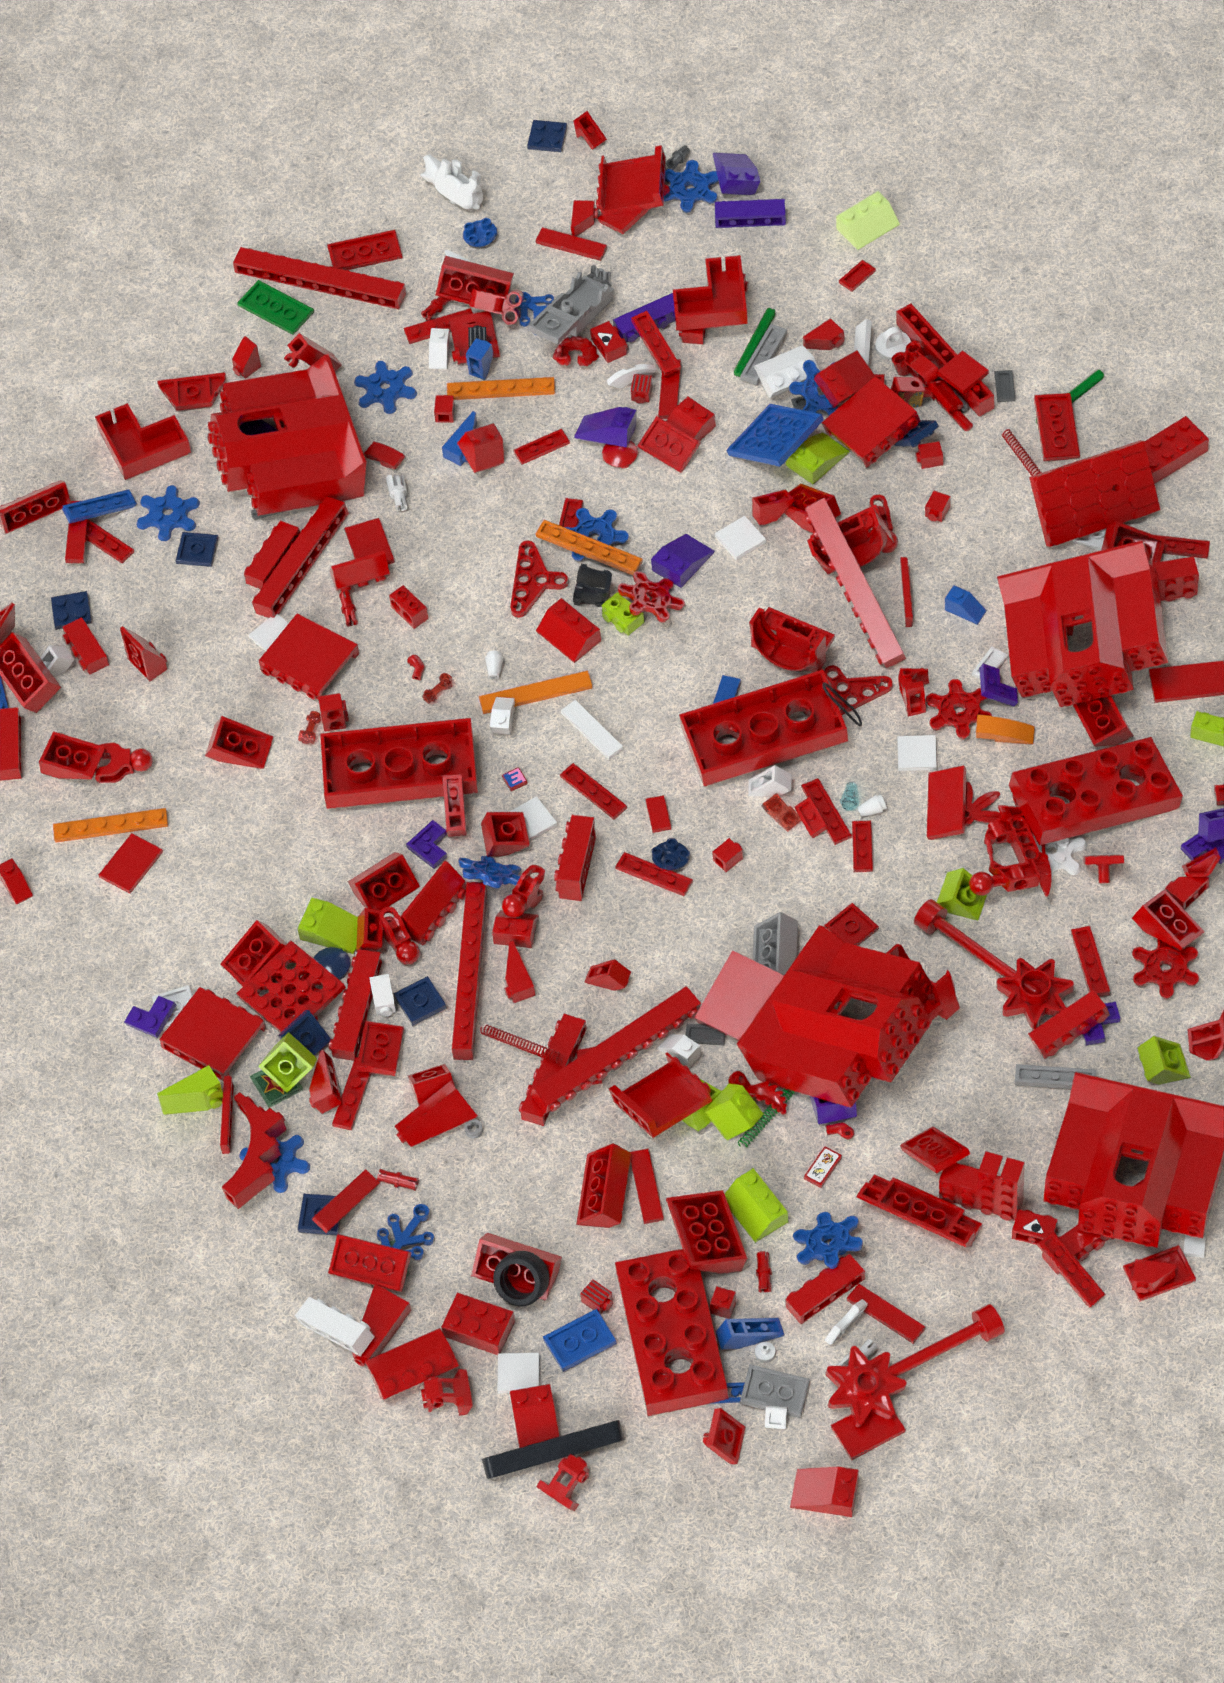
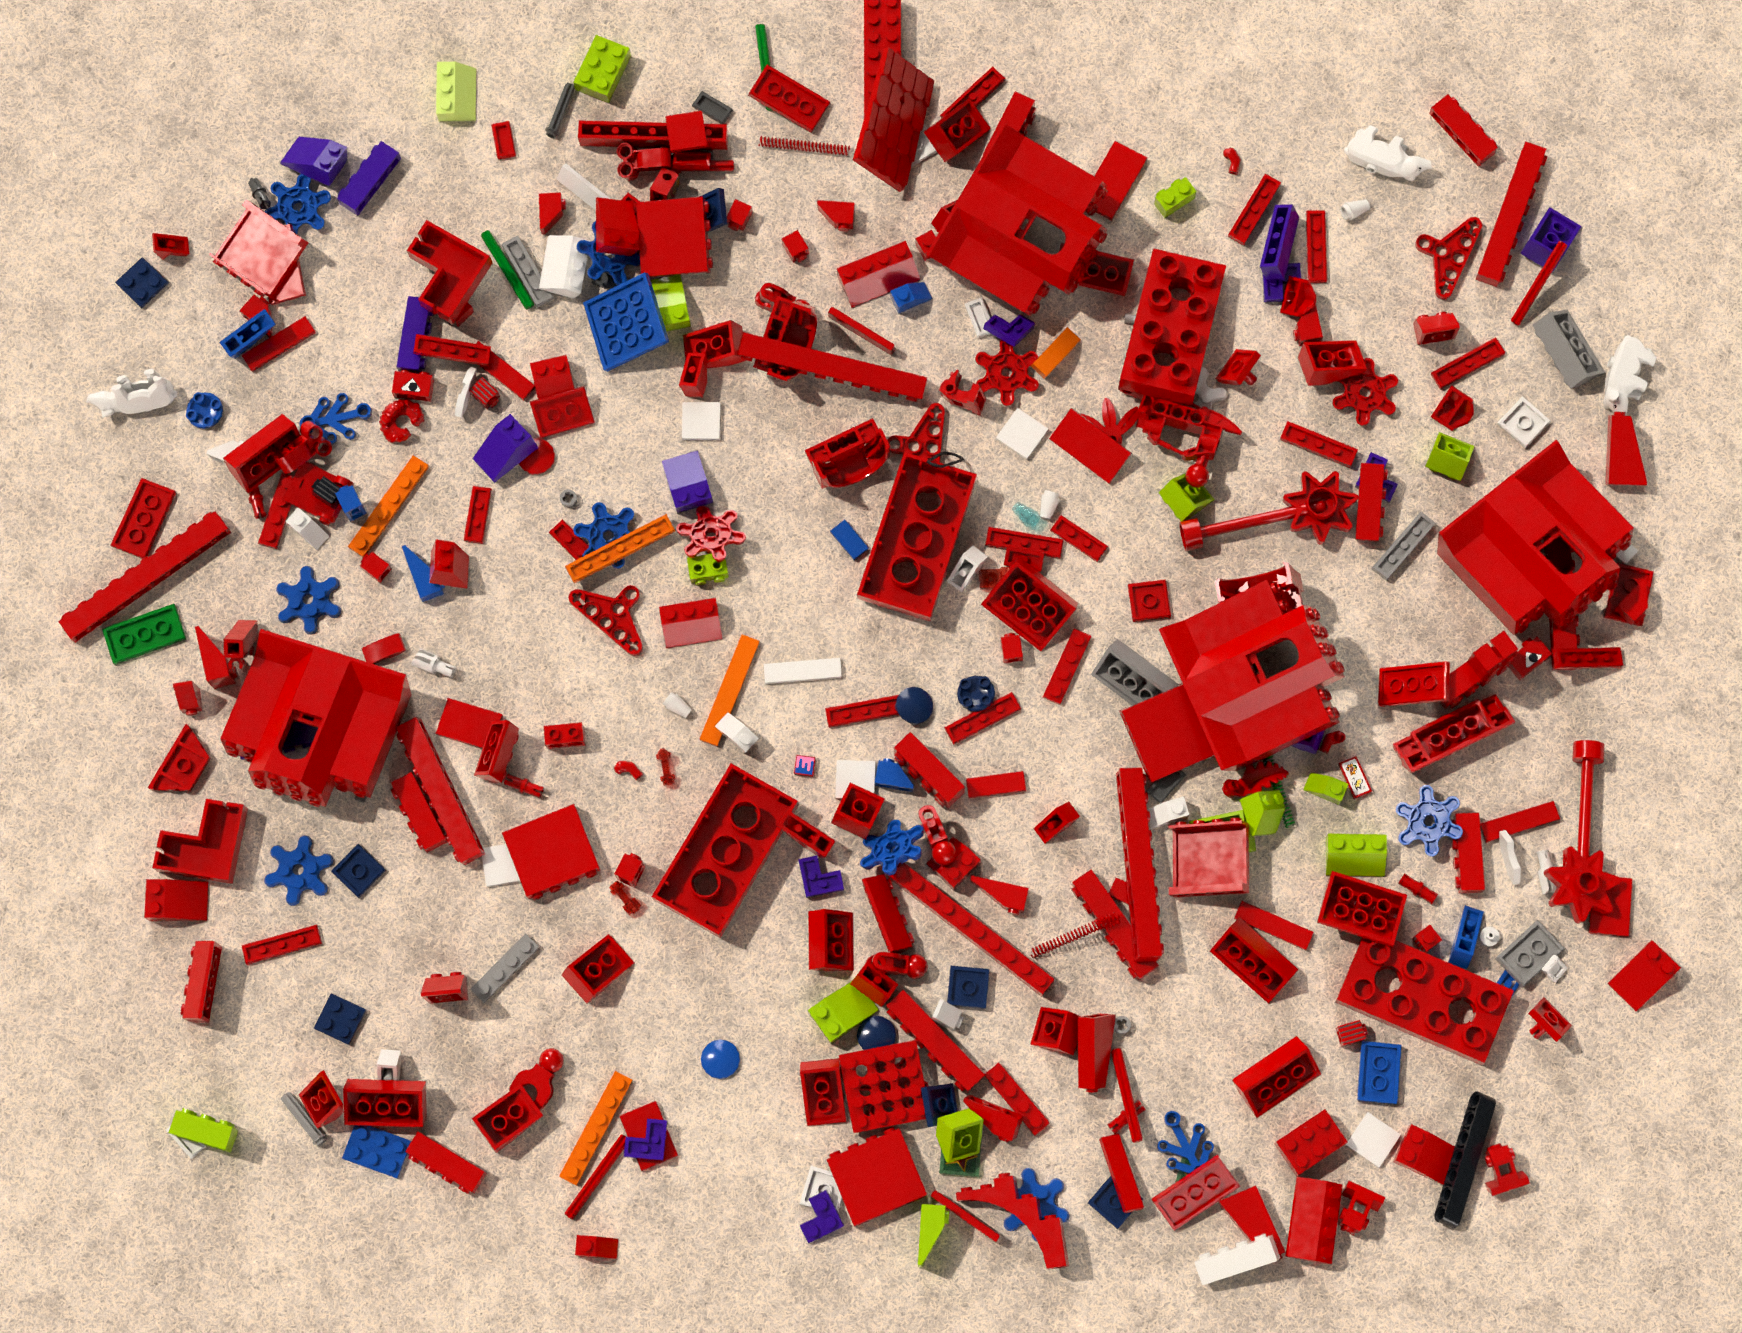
camera: 55 degrees left, 20 degrees up
(71, 849) = (596, 1177): none -> red axle
(76, 541) = (262, 961): red tile -> none
(83, 451) = (176, 900): none -> red slope
(84, 646) = (391, 1032): red brick -> none
(99, 506) = (250, 925): blue tile -> none
(121, 865) = (651, 1146): none -> dark purple plate
(192, 687) = (505, 968): none -> light grey plate
(229, 871) = (720, 1059): none -> blue dish
(275, 355) = (215, 665): none -> red slope
(380, 1048) = (992, 1049): red tile -> none
(414, 1164) = (1126, 1094): none -> red axle
(507, 1291) = (1290, 1072): black tyre -> none
(551, 839) = (892, 776): none -> blue slope
(556, 216) = (247, 334): none -> blue slope
(576, 307) = (362, 391): light grey piece -> none
(586, 583) = (673, 562): black piece -> none
(602, 489) = (563, 496): none -> light grey bush
(605, 917) = (995, 784): none -> red tile
(624, 819) = (914, 705): none -> dark blue dish
(658, 814) = (926, 675): red tile -> none
(746, 904) = (1067, 666): none -> red plate
(775, 841) = (1029, 603): none -> red slope
(795, 1151) = (1326, 787): none -> lime slope
(891, 342) = (599, 163): white tile -> none
(911, 294) = (552, 130): none -> dark grey axle
(954, 566) = (878, 274): none -> red slope
(970, 296) = (602, 68): none -> lime brick
(990, 517) = (838, 213): none -> red slope

